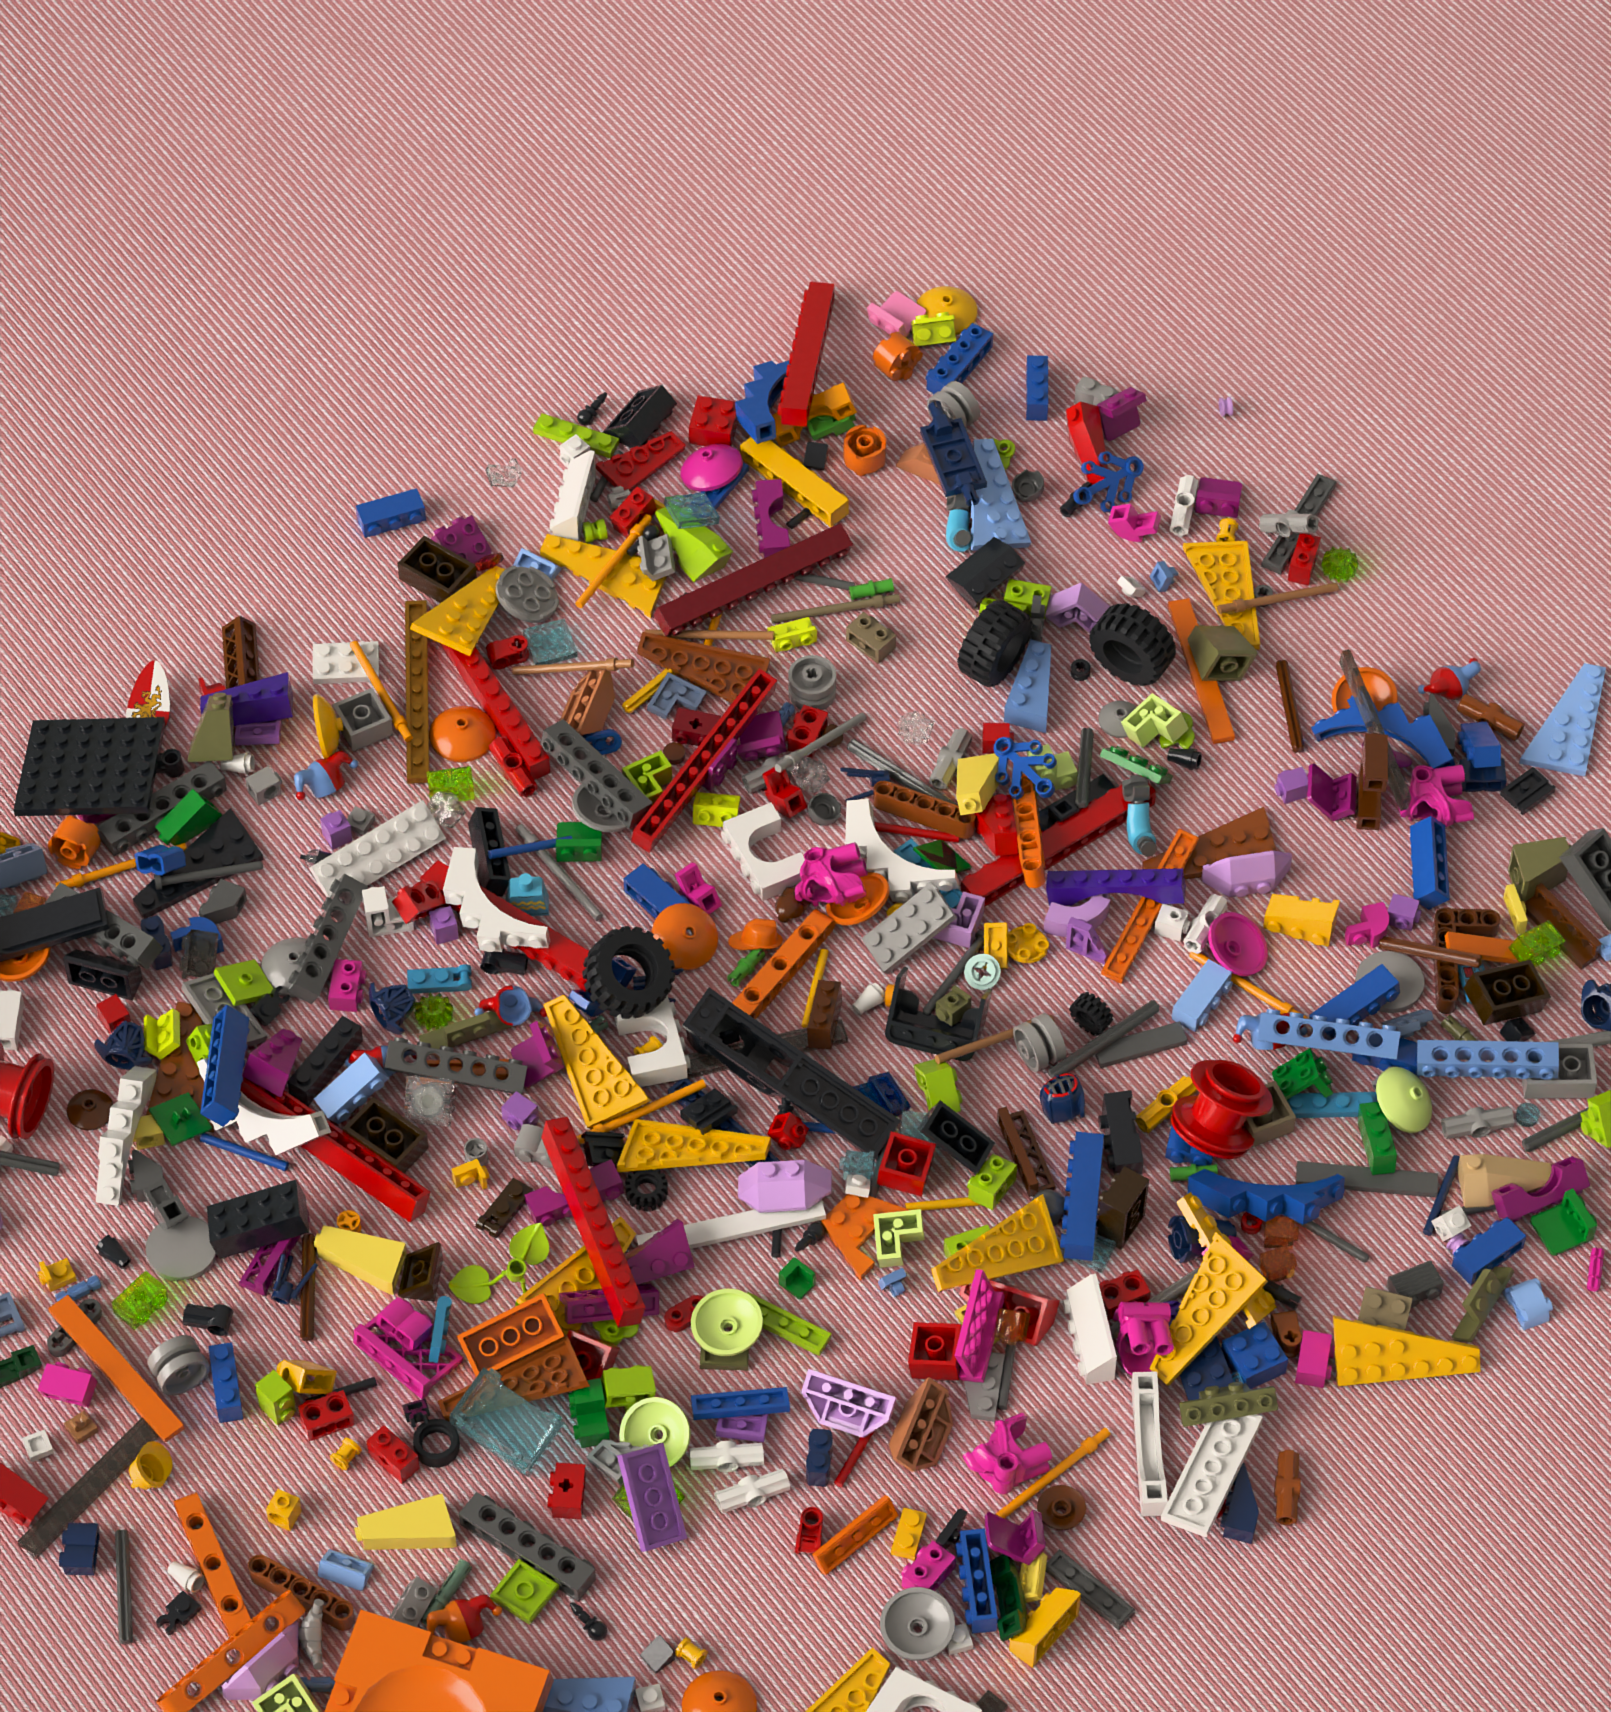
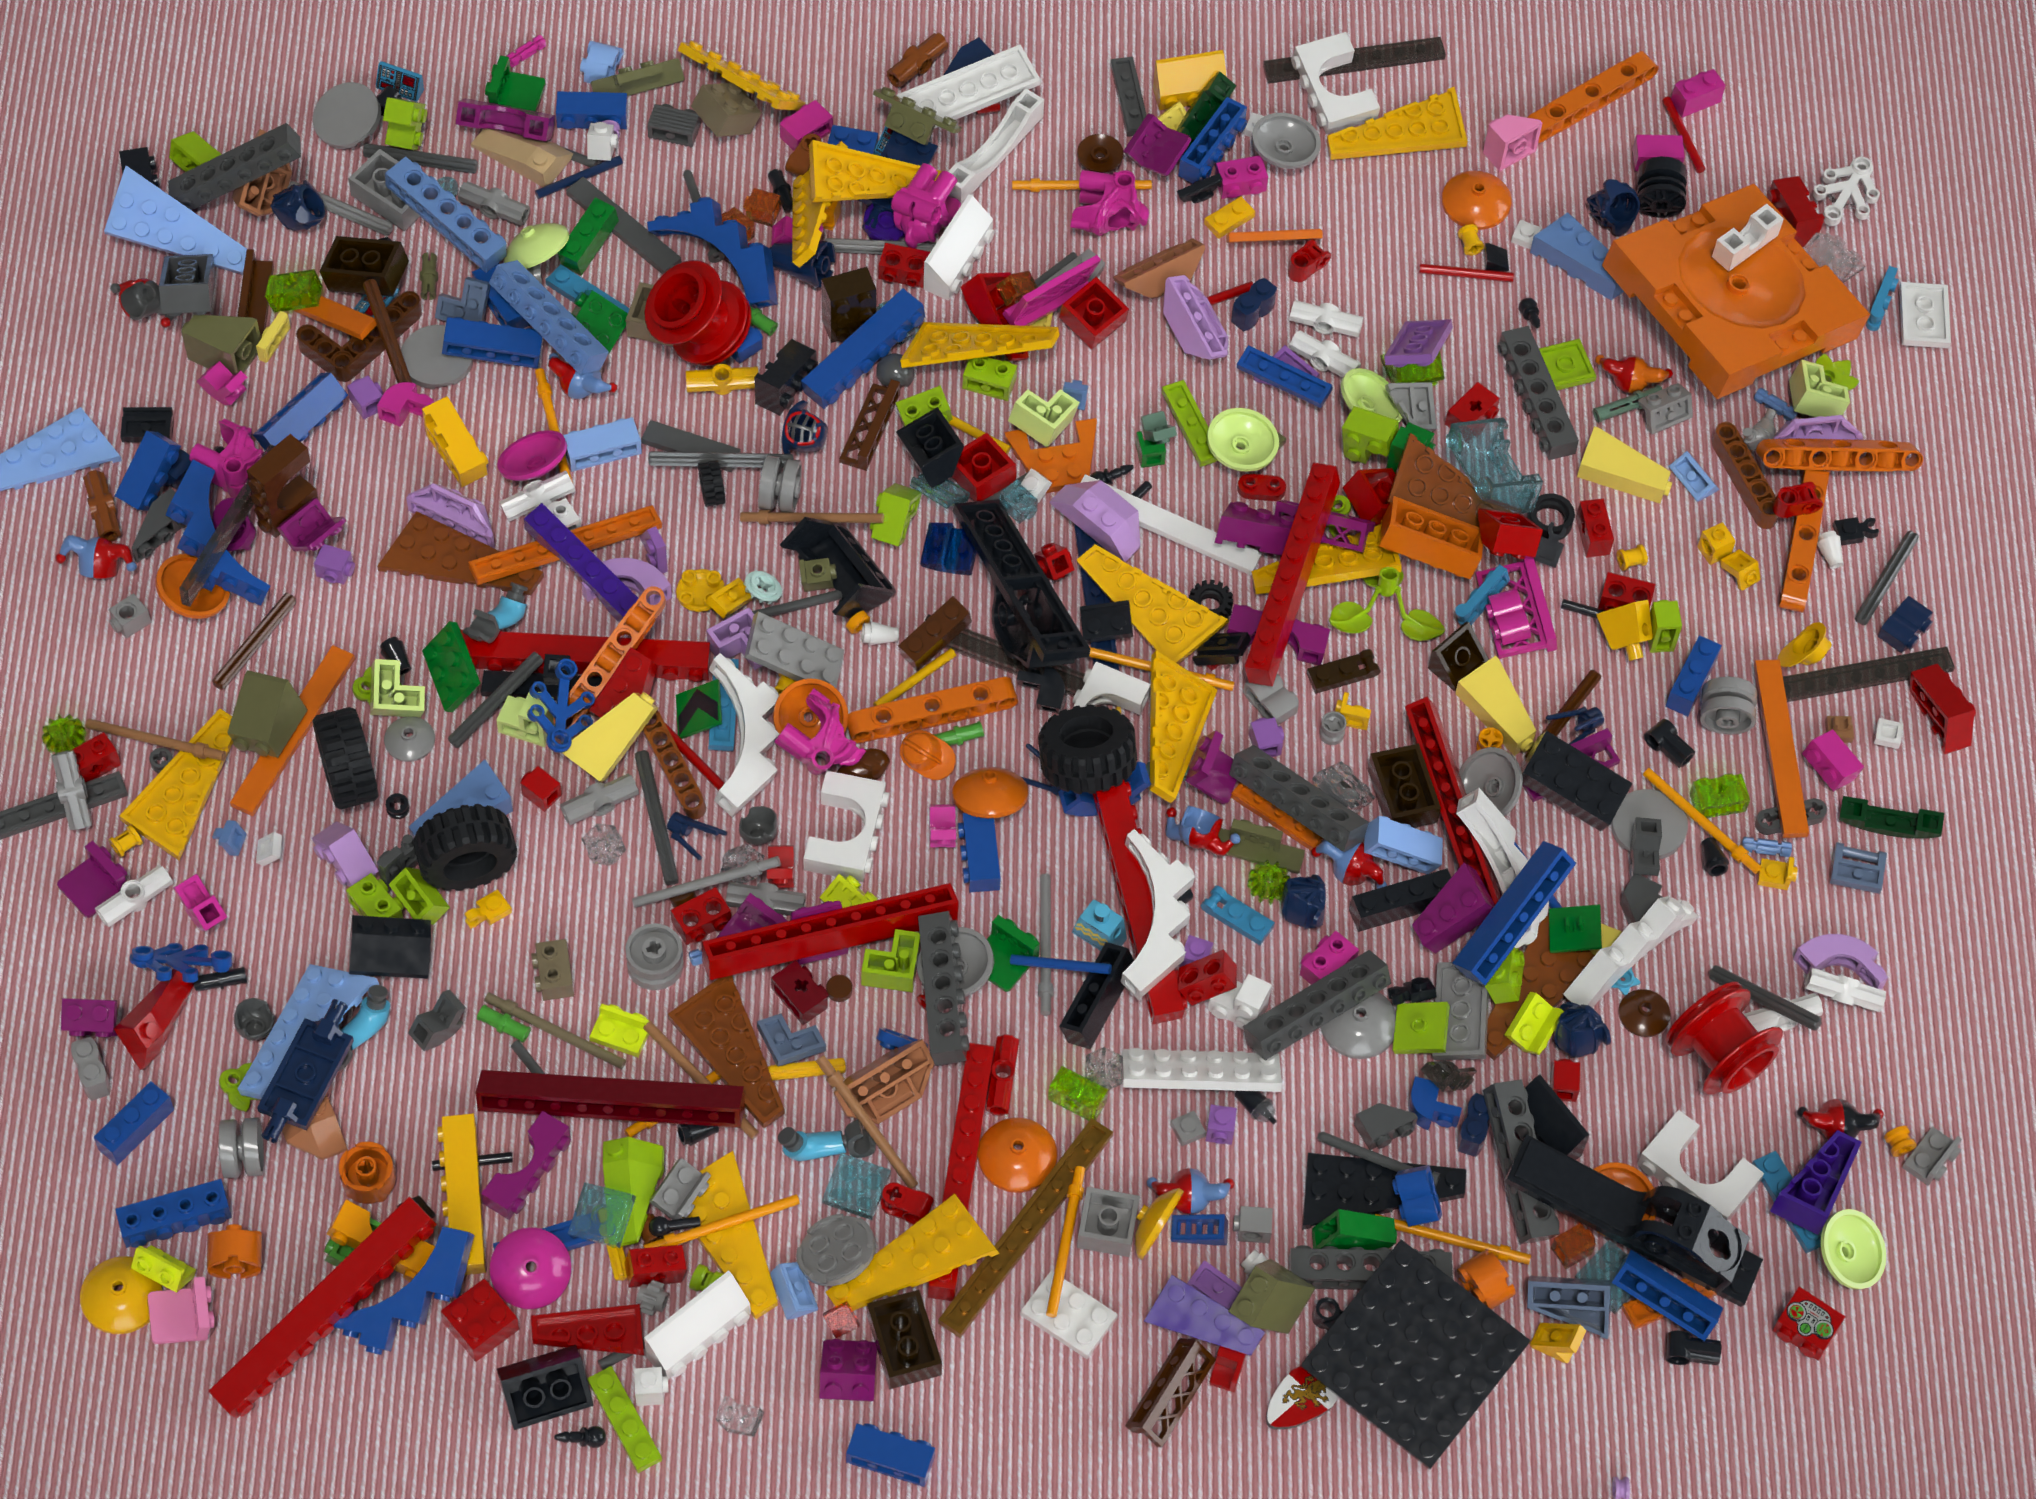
camera: 145 degrees left, 5 degrees up
(95, 1264) = (1739, 853): none -> light orange bar
(235, 1578) = (1797, 500): none -> red piece
(250, 1506) = (1742, 567): none -> yellow bracket
(285, 767) = (1199, 1238): none -> blue slope
(320, 1179) = (1491, 769): none -> light grey dish
(450, 1374) = (1508, 533): none -> red slope
(596, 650) = (815, 1145): none -> piece
(673, 1624) = (1466, 272): none -> red bar
(802, 1295) = (1156, 428): none -> sand green bracket
(911, 557) = (439, 1024): none -> dark grey brick
(950, 649) = (489, 908): none -> yellow plate
(1387, 659) = (129, 607): none -> light grey brick
(1501, 847) = (222, 383): none -> dark pink brick

